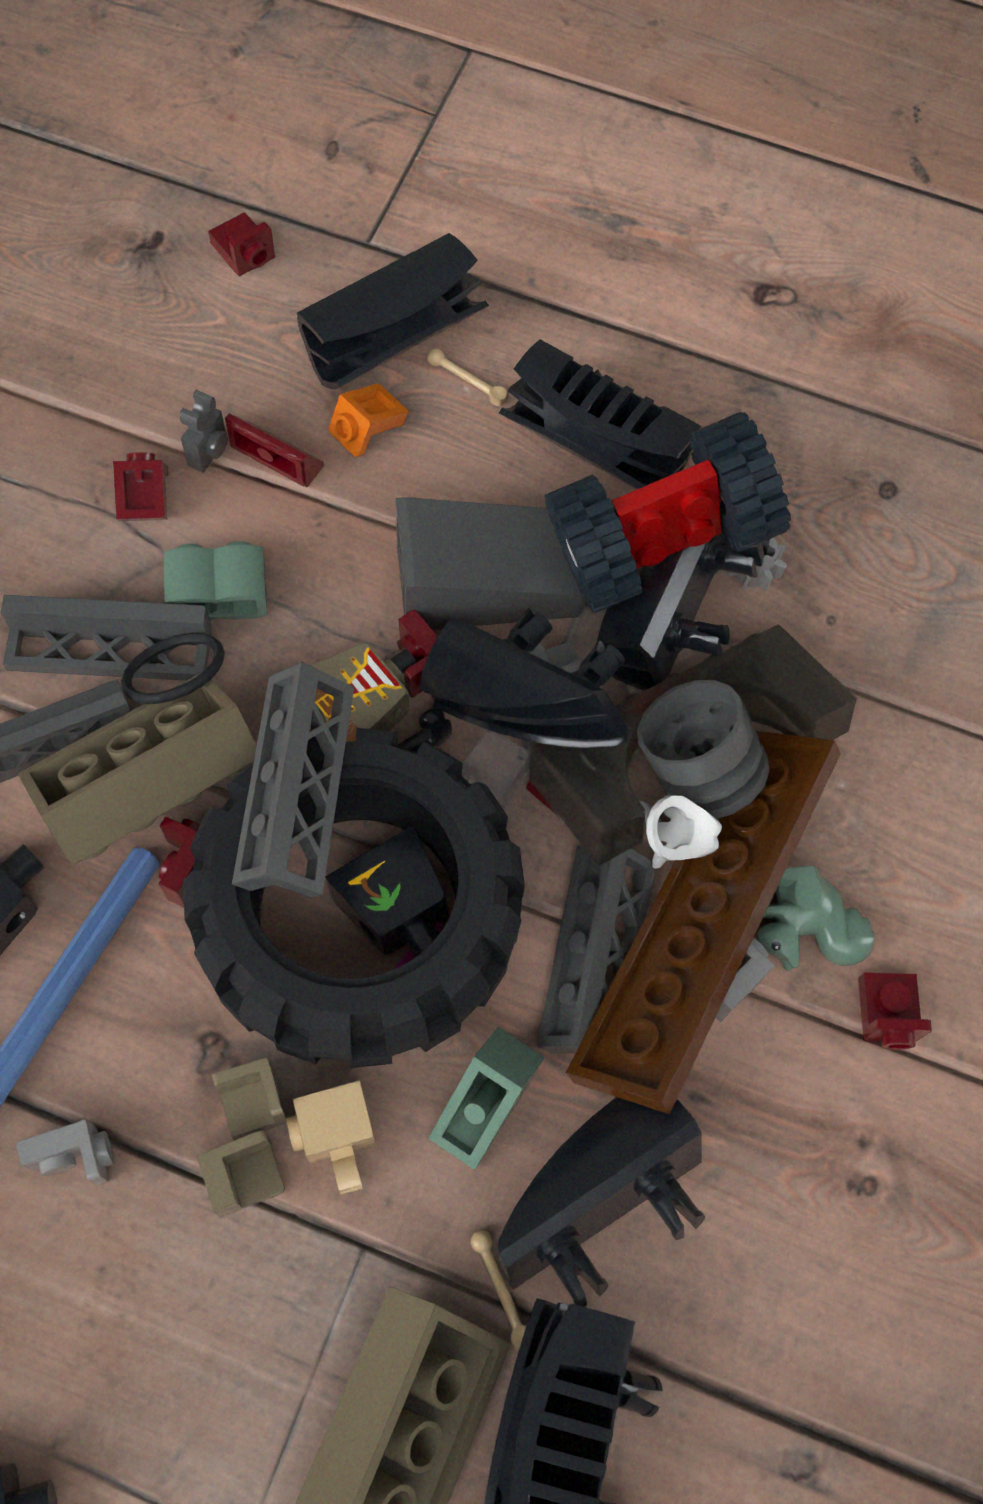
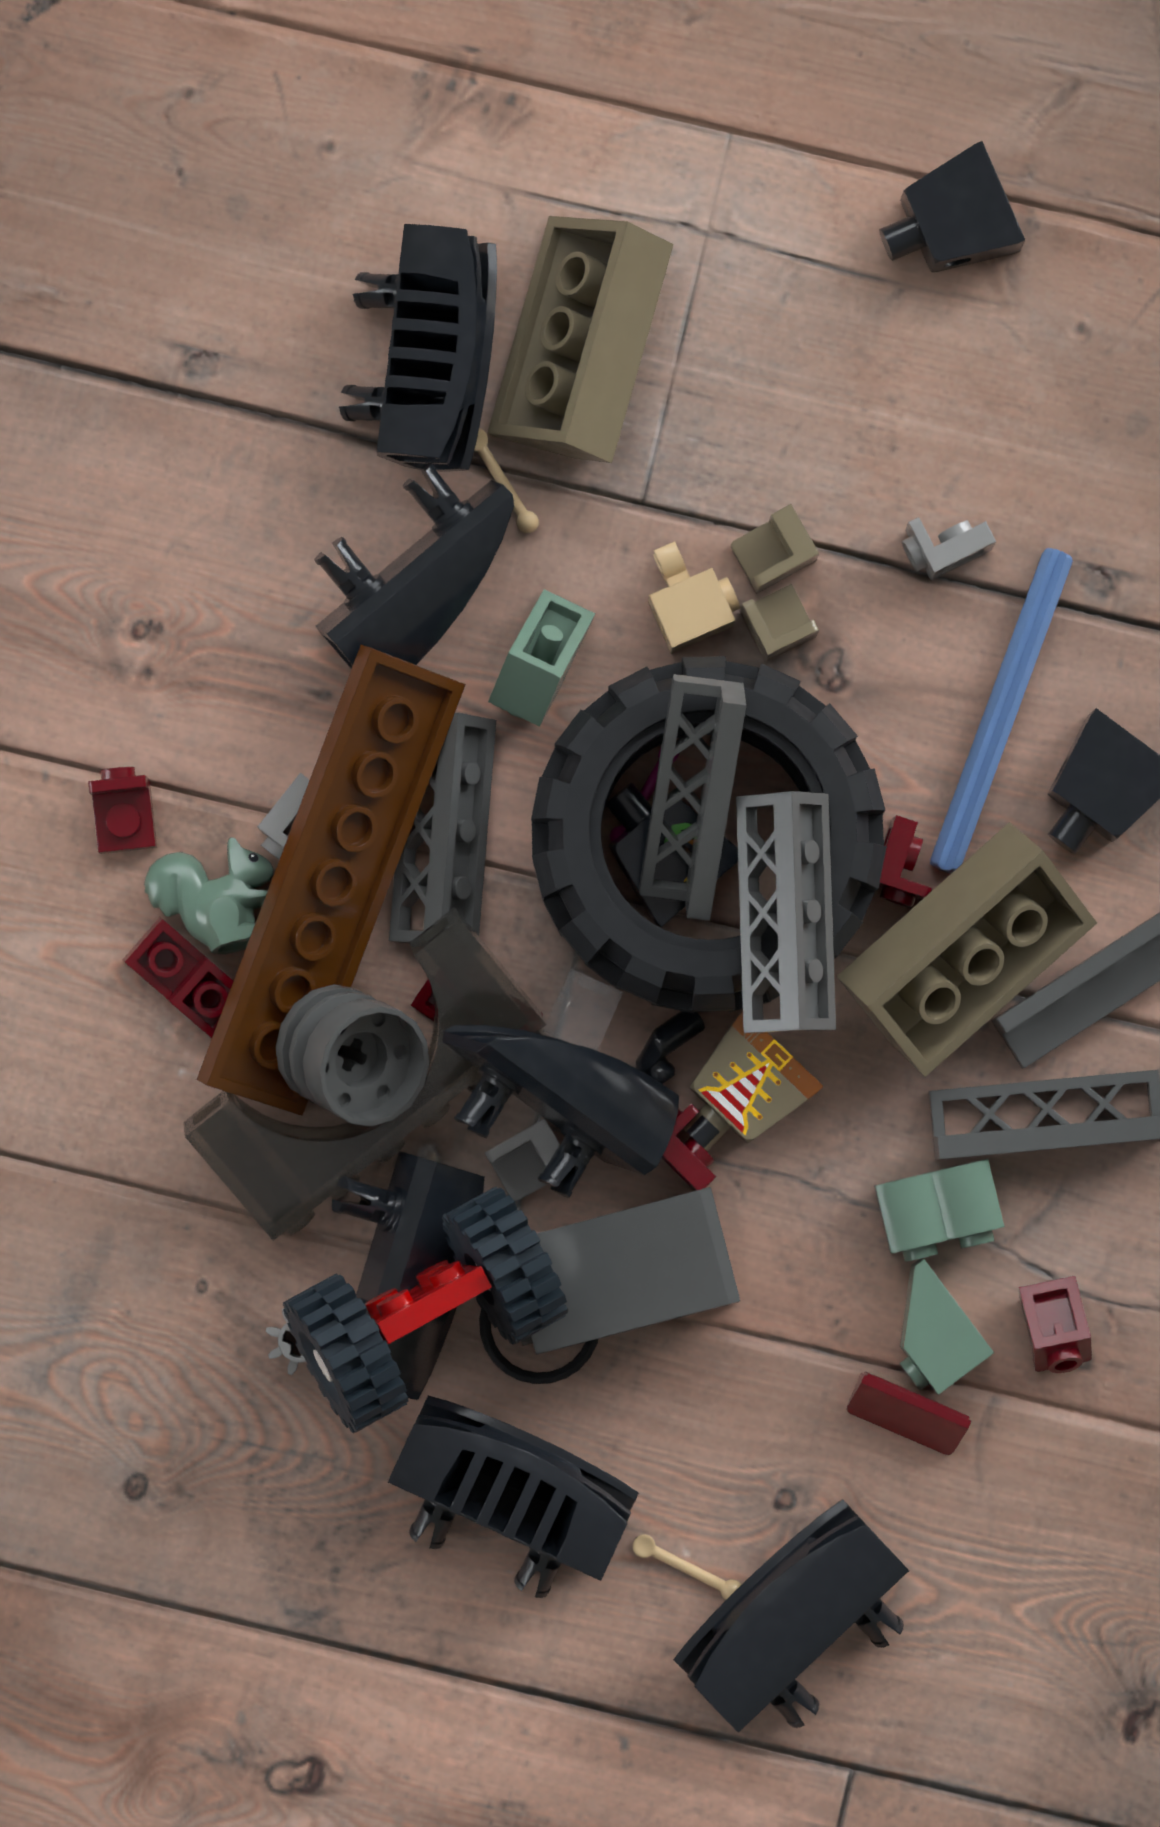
camera: 175 degrees right, 20 degrees up
(180, 691) = (920, 1052): black tyre -> none
(205, 433) = (993, 1405): dark grey plate -> none
(237, 489) = (937, 1333): none -> sand green slope
(243, 243) = (1013, 1729): dark red bracket -> none
(337, 915) = (715, 794): none -> dark grey fence
(364, 414) = (803, 1473): orange bracket -> none
(688, 835) = (359, 960): white piece -> none
(832, 847) = (181, 974): none -> dark red slope

